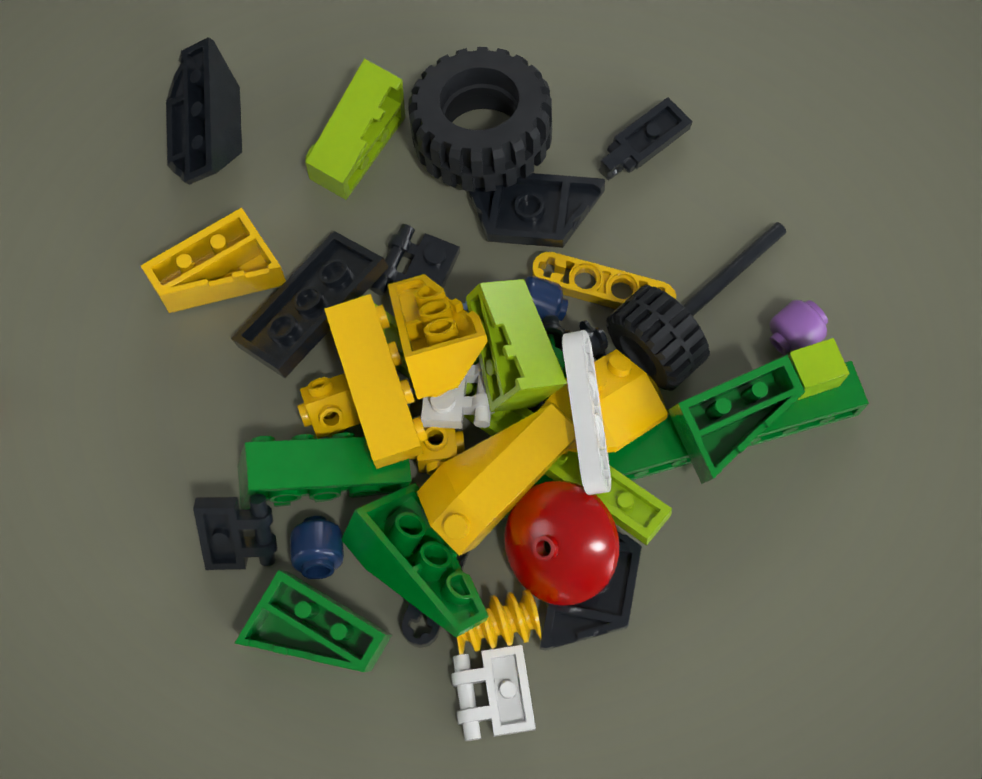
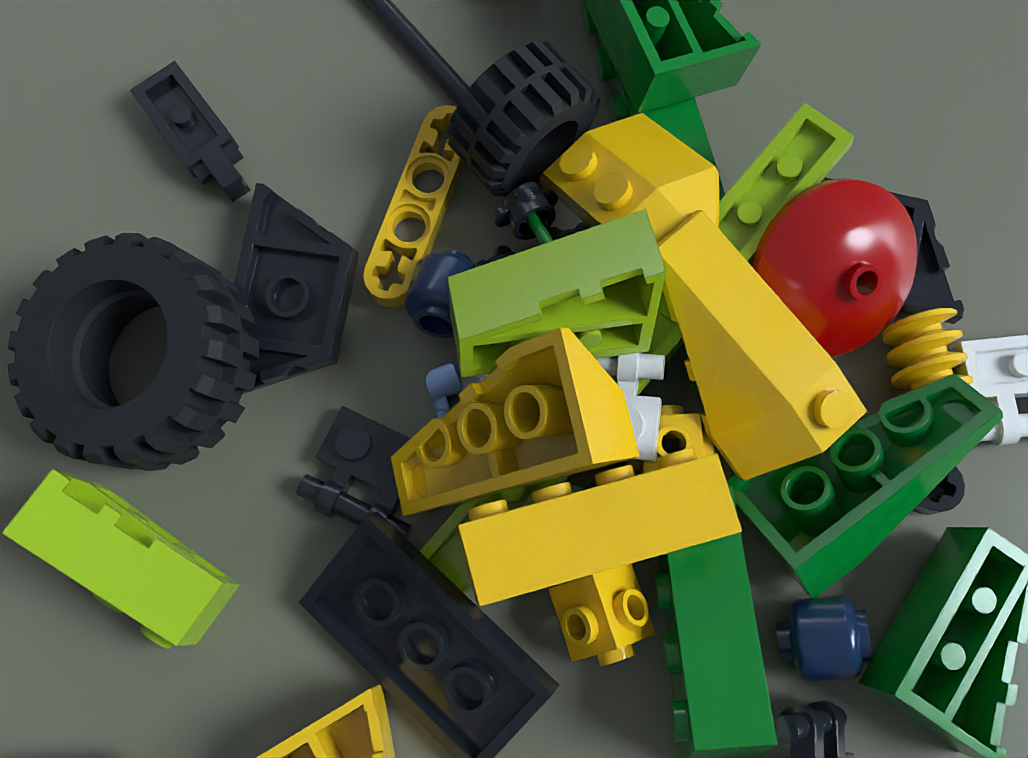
camera: 80 degrees left, 5 degrees up
(586, 412) = (677, 192): white beam -> none

